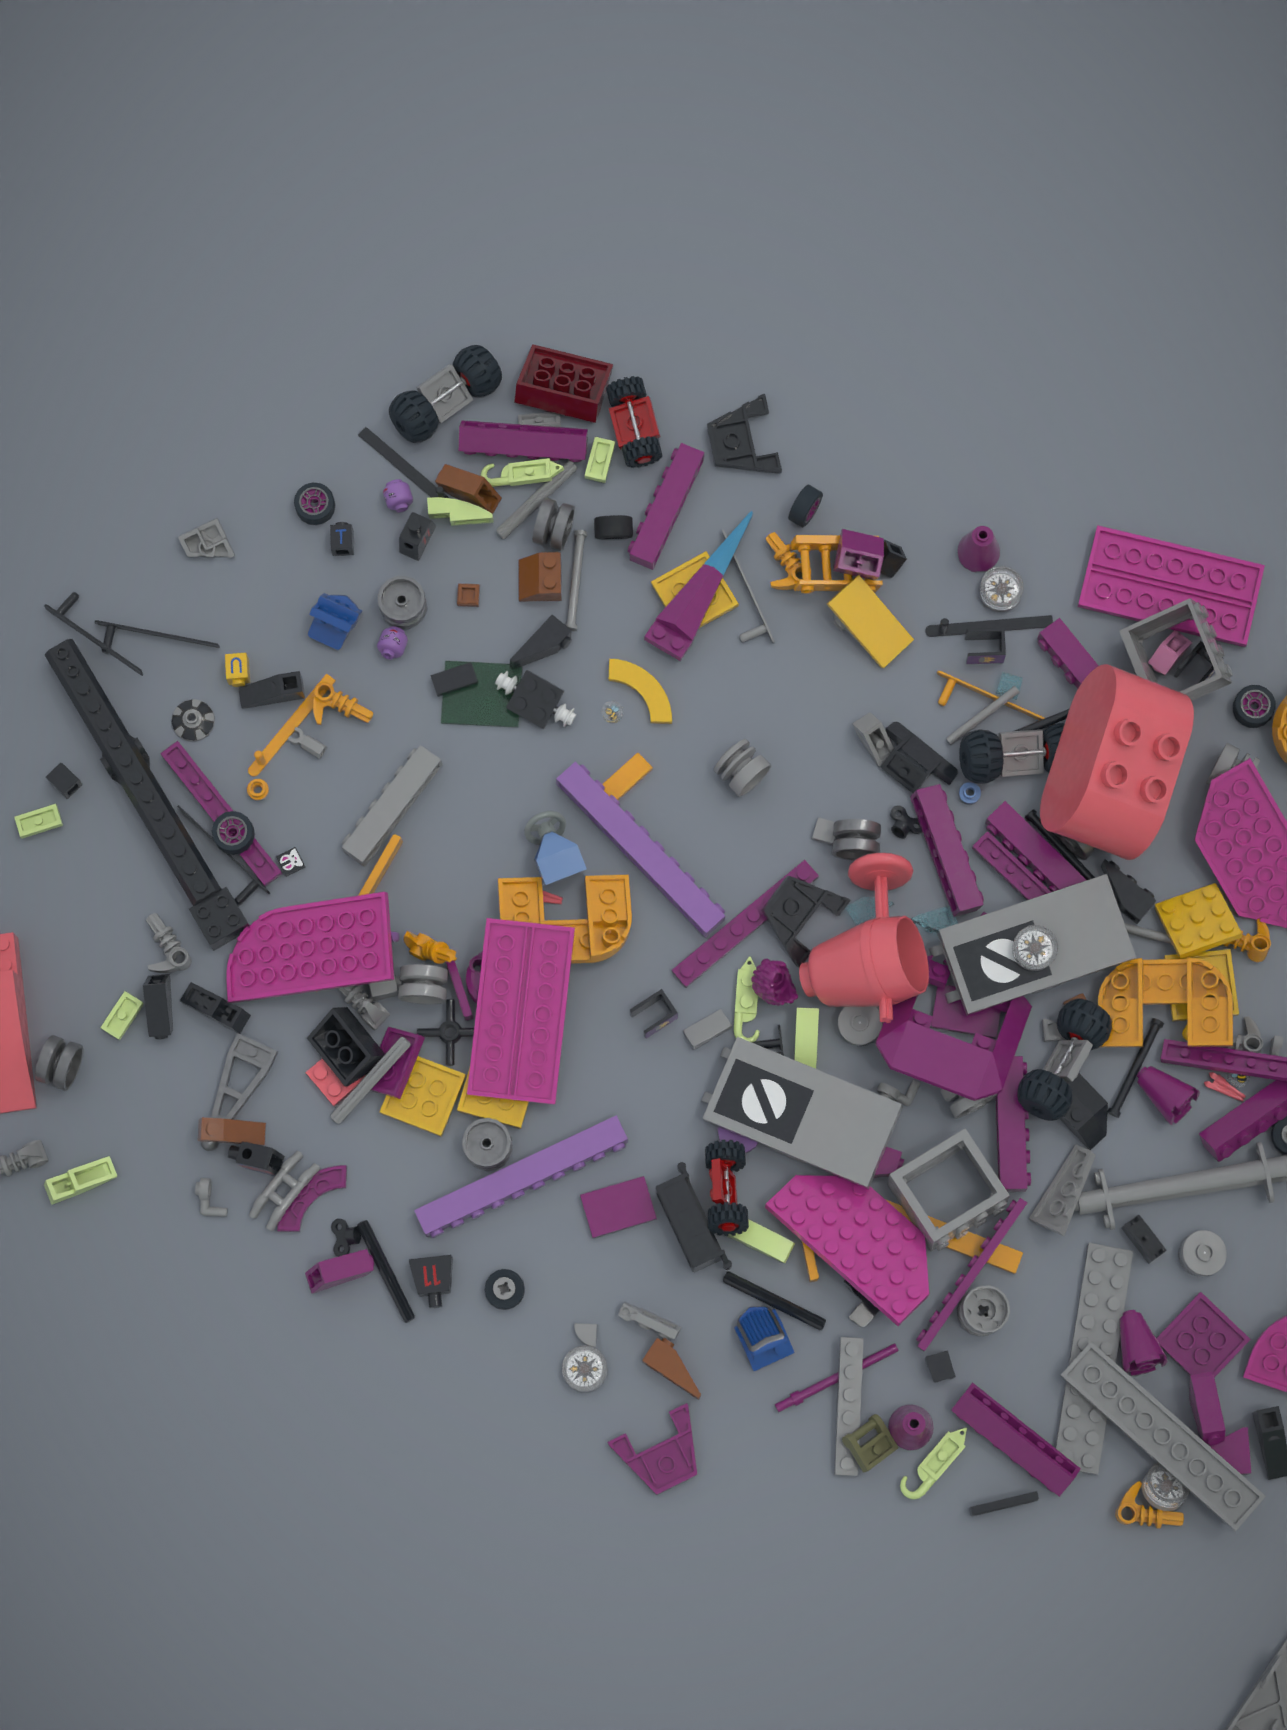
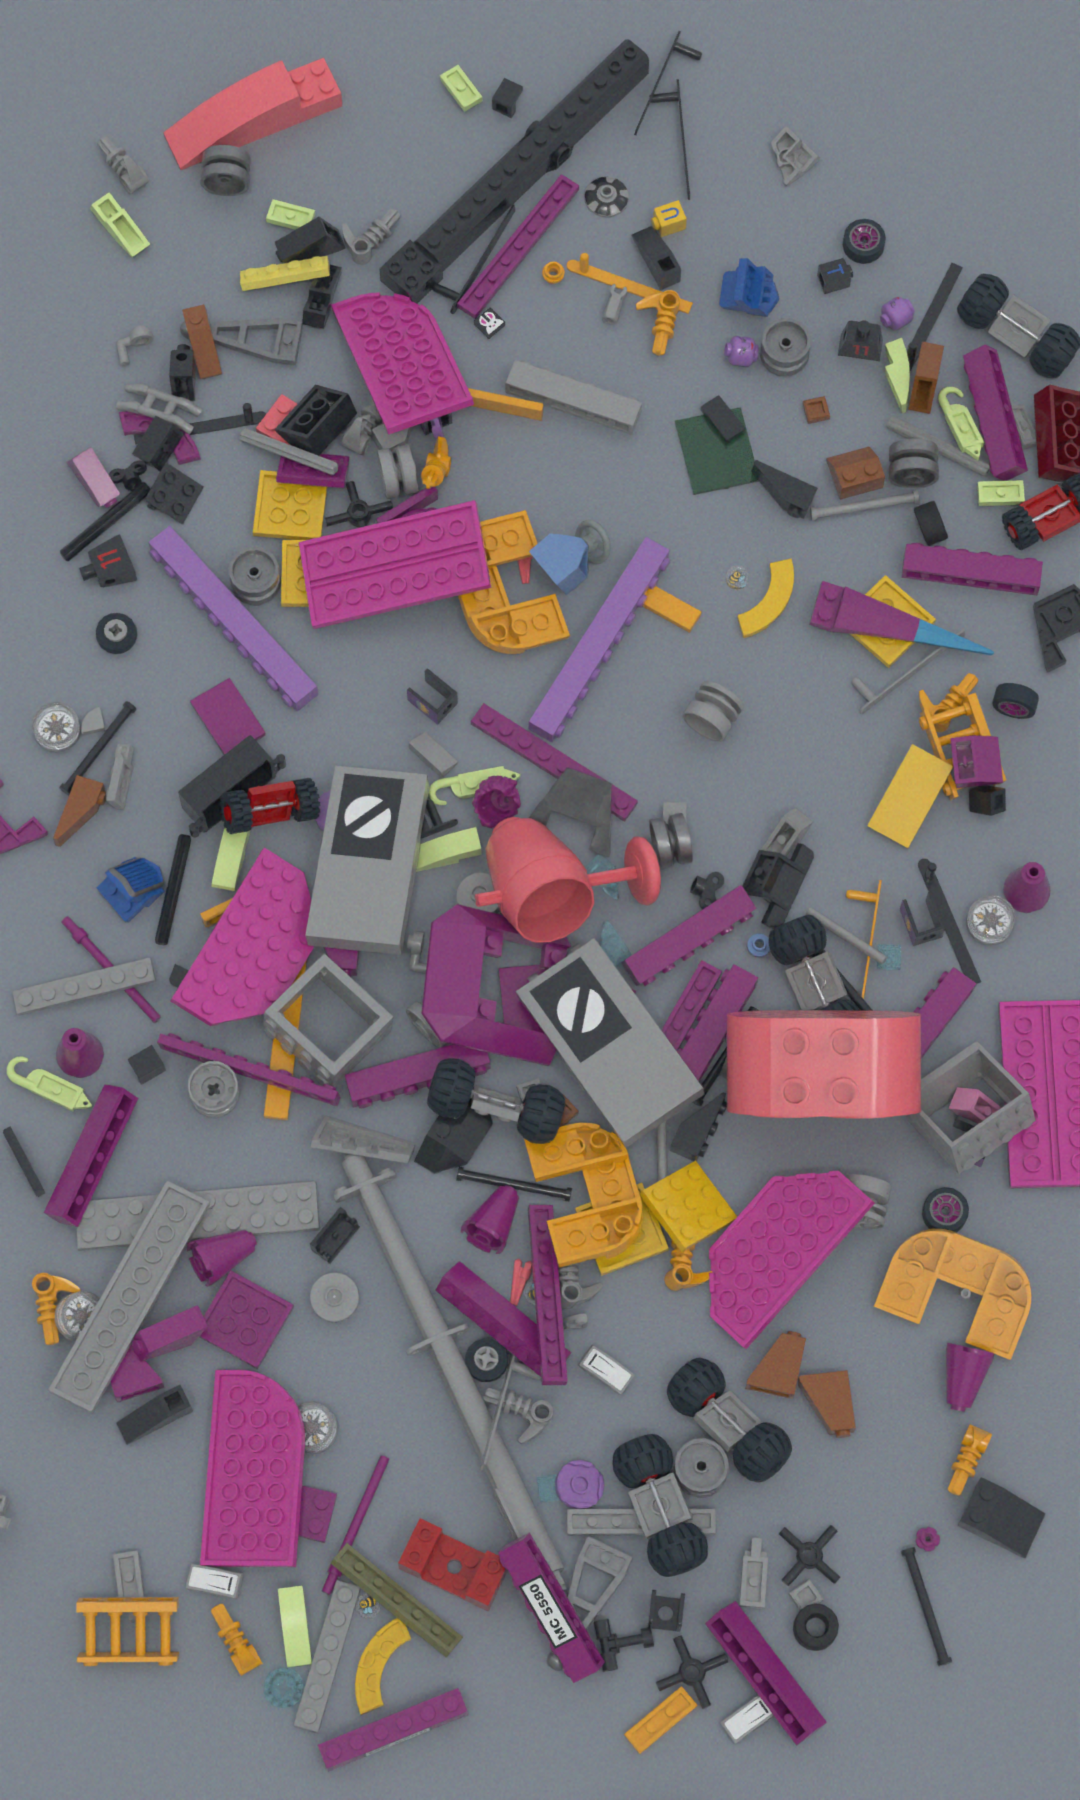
camera: 70 degrees right, 5 degrees down
(182, 1036) = (284, 273): none -> light yellow plate
(229, 822) = (493, 249): wheel -> none
(315, 1143) = (245, 419): none -> black piece
(323, 1200) = (158, 443): none -> black hinge
(377, 1199) = (173, 493): none -> black hinge
(535, 699) = (724, 498): black plate -> none
(615, 1336) = (99, 746): none -> black bar
(874, 1449) = (45, 1020): olive plate -> none
(1035, 947) = (600, 1033): clear piece -> none

